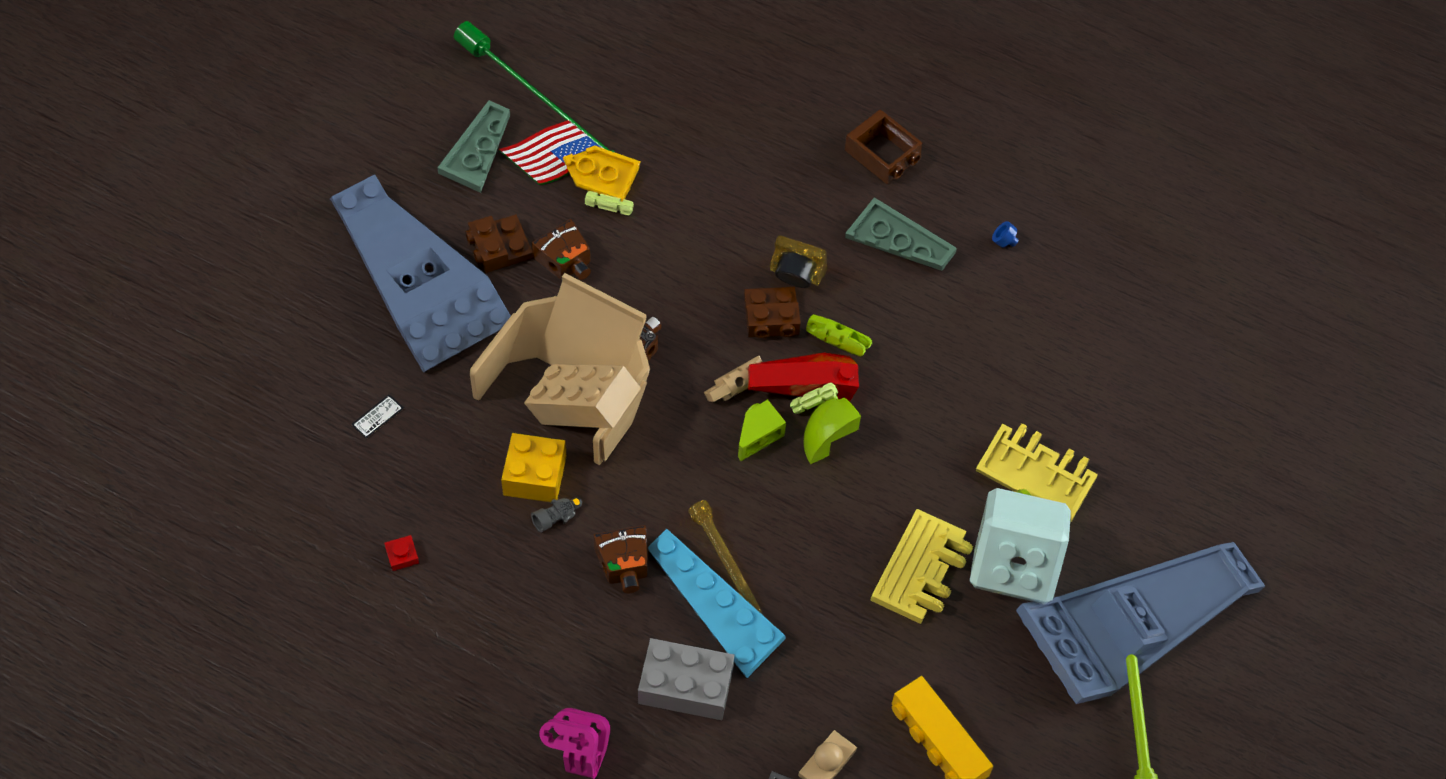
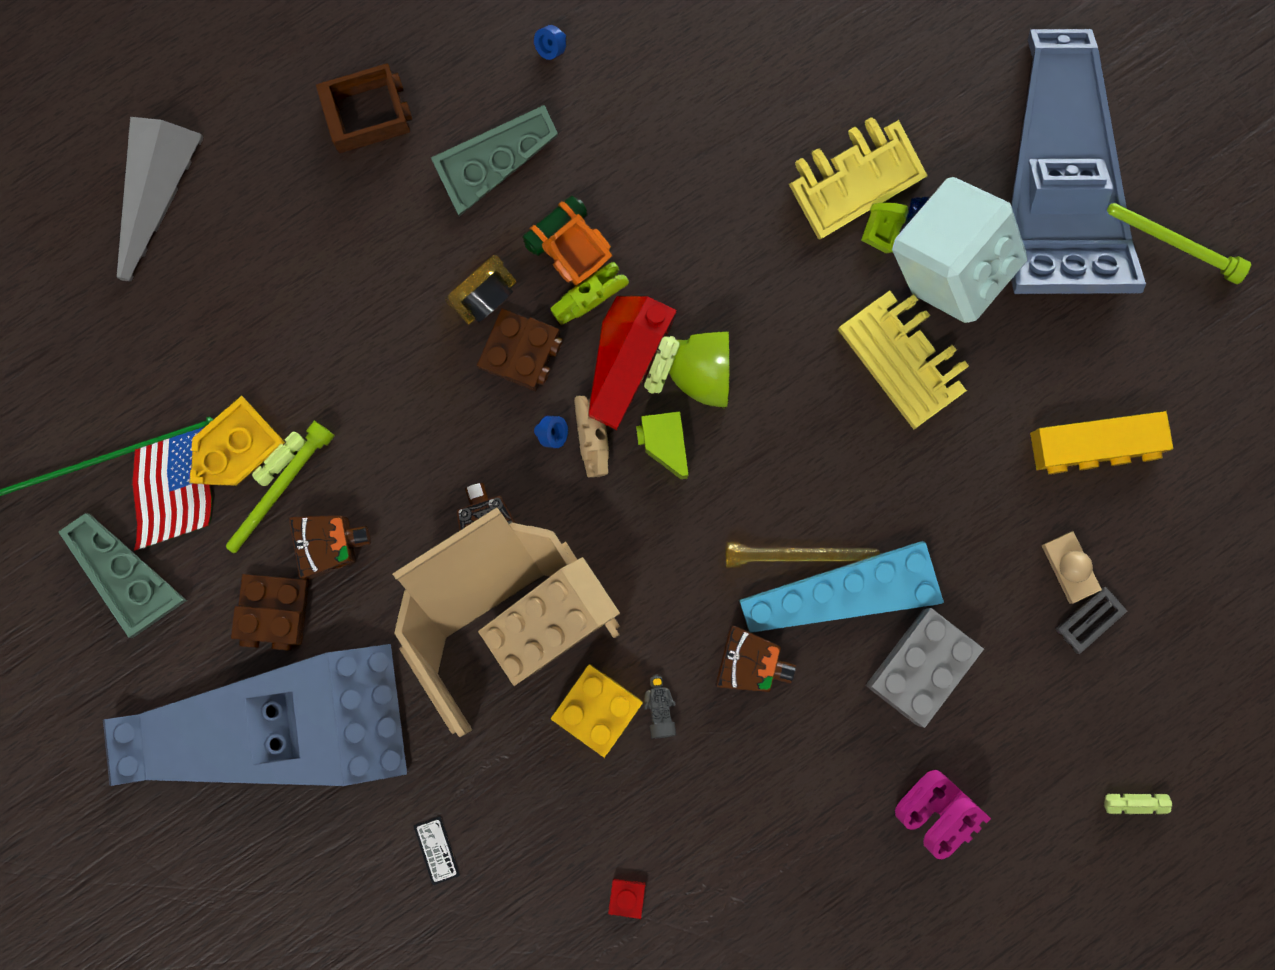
camera: 60 degrees left, 25 degrees up
(636, 217) = (316, 438): none -> lime piece
(724, 354) = (552, 431): none -> blue tile
(768, 49) = (154, 166): none -> light grey wedge
(868, 305) = (569, 241): none -> orange piece

